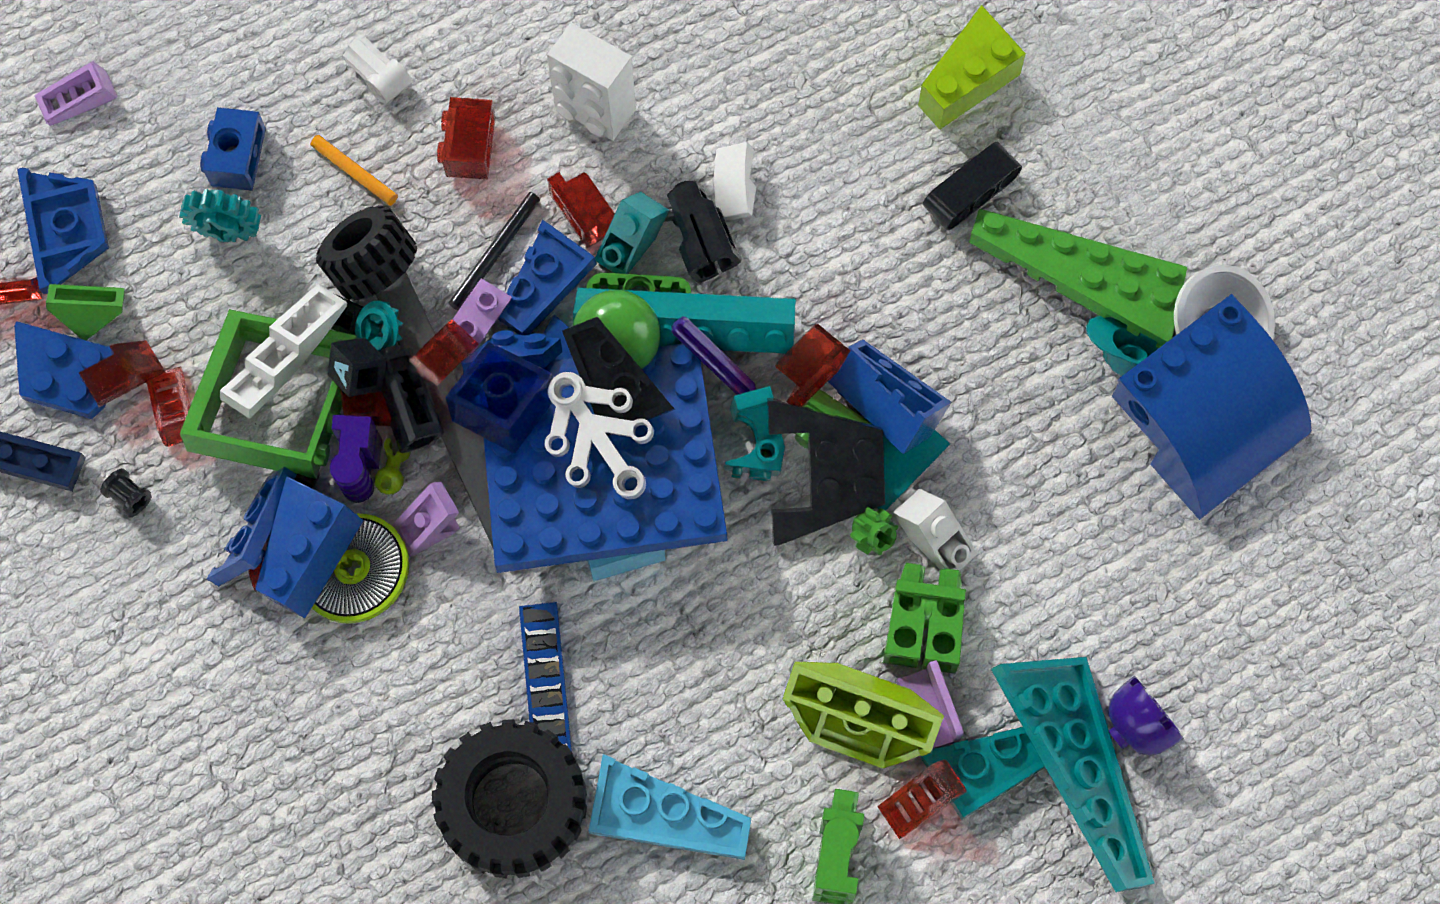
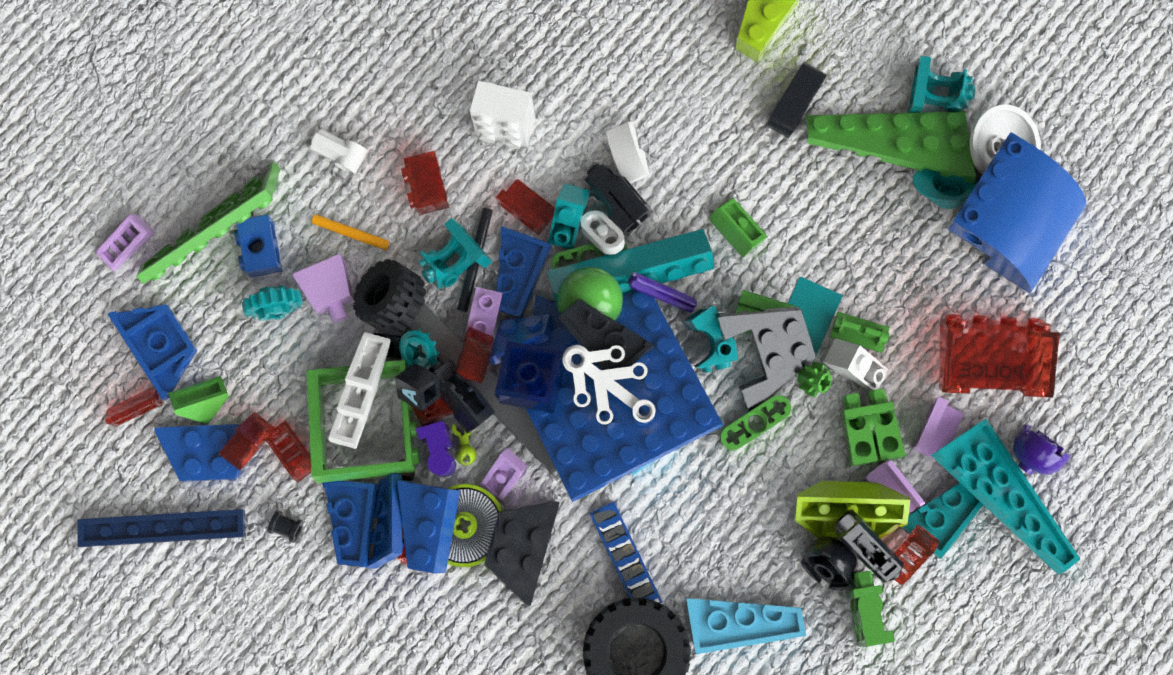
camera: 15 degrees left, 10 degrees up
(189, 104) = (216, 223): none -> bright green wing
(213, 512) = (351, 514): none -> blue wing
(297, 221) = (327, 287): none -> lavender torso
(413, 616) = (520, 547): none -> black wing
(483, 222) = (461, 242): none -> teal tile
(665, 263) = (604, 234): none -> white plate
(807, 566) = (776, 418): none -> bright green beam
(811, 769) = (831, 561): none -> black cylinder
(812, 363) = (734, 274): clear red panel -> none
(842, 312) = (737, 227): none -> bright green slope
(866, 762) = (868, 546): none -> black piece
(889, 396) = (793, 279): blue wedge -> none
(962, 497) = (860, 332): none -> bright green hinge
(1019, 642) = (937, 428): none -> lavender panel
(1126, 580) = (997, 355): none -> clear red windscreen
(1148, 214) = (959, 84): none -> teal tile

